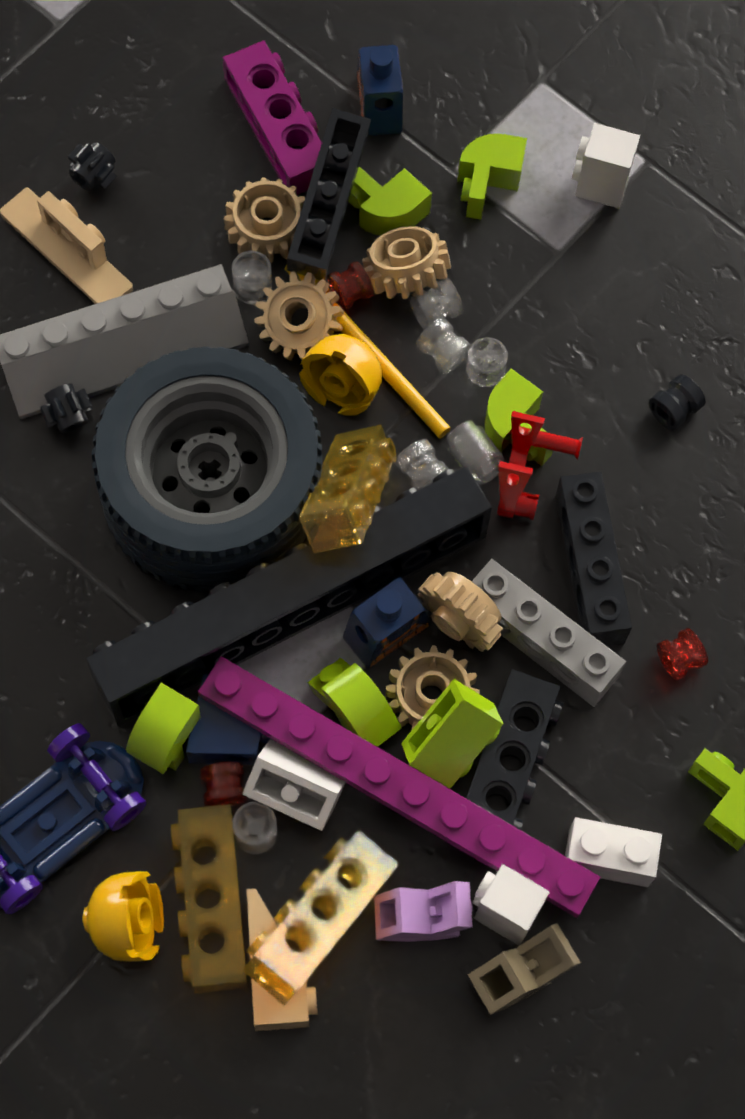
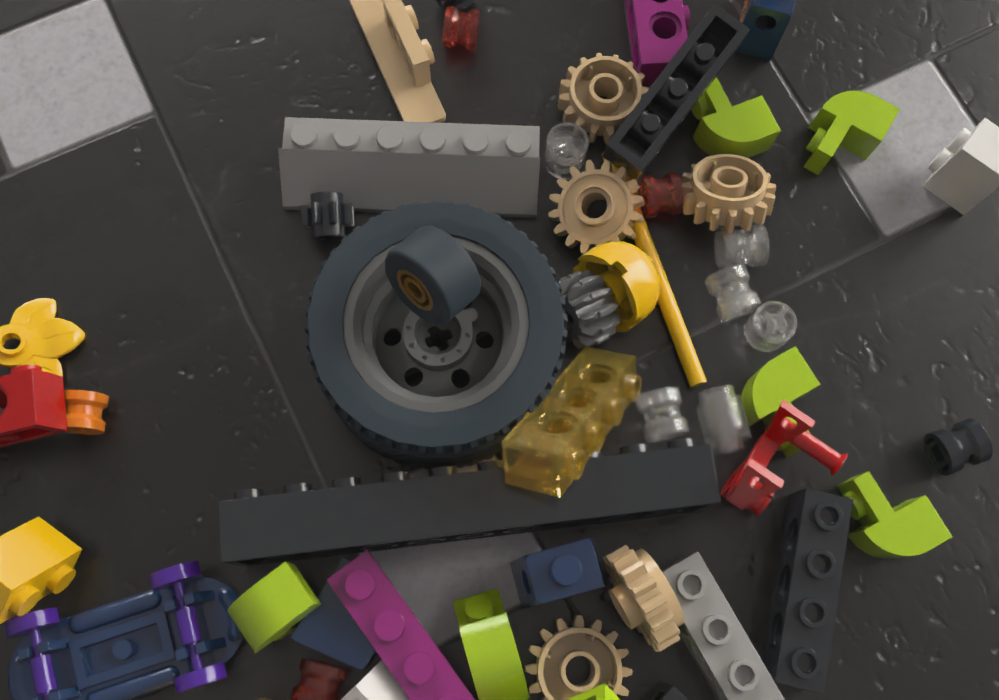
camera: 20 degrees right, 5 degrees up
(115, 203) = (461, 28): none -> clear red wheel
(192, 409) = (432, 274): none -> black wheel
(329, 401) = (588, 309): none -> dark grey gear
(647, 490) = (888, 531): none -> lime brick

